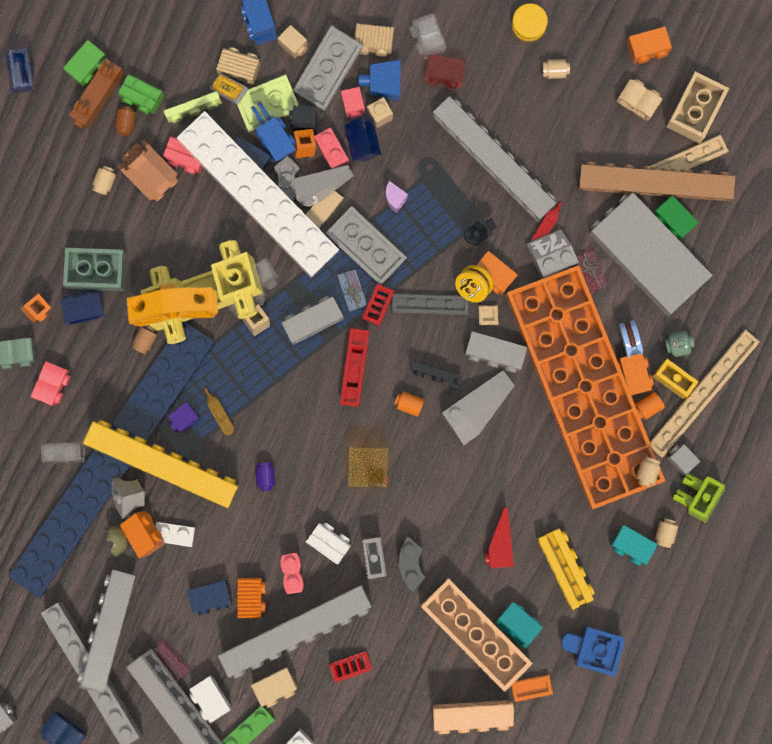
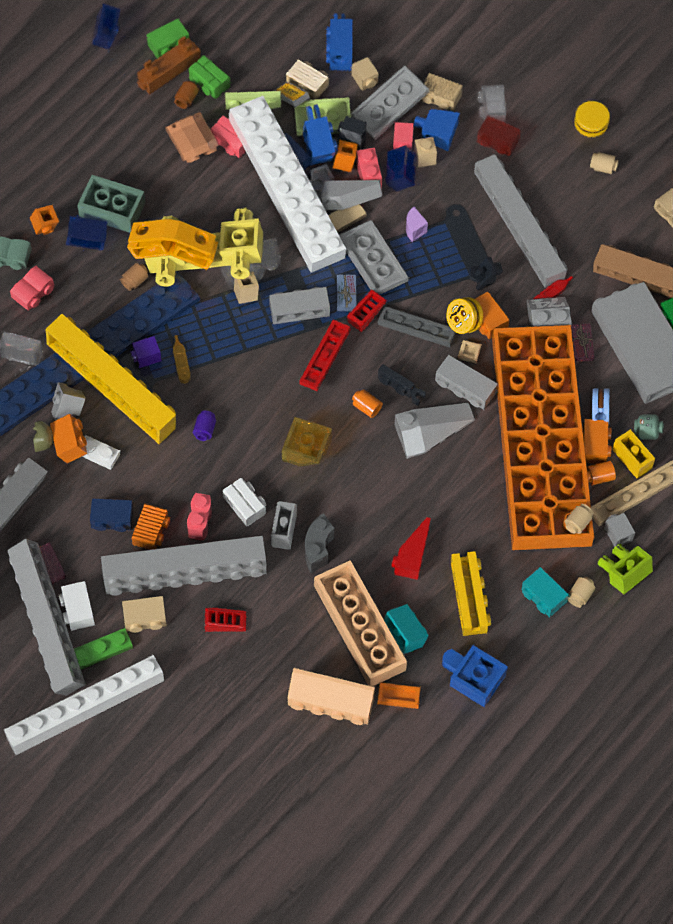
camera: 15 degrees right, 20 degrees down
(103, 180) = (148, 136): tan brick -> none

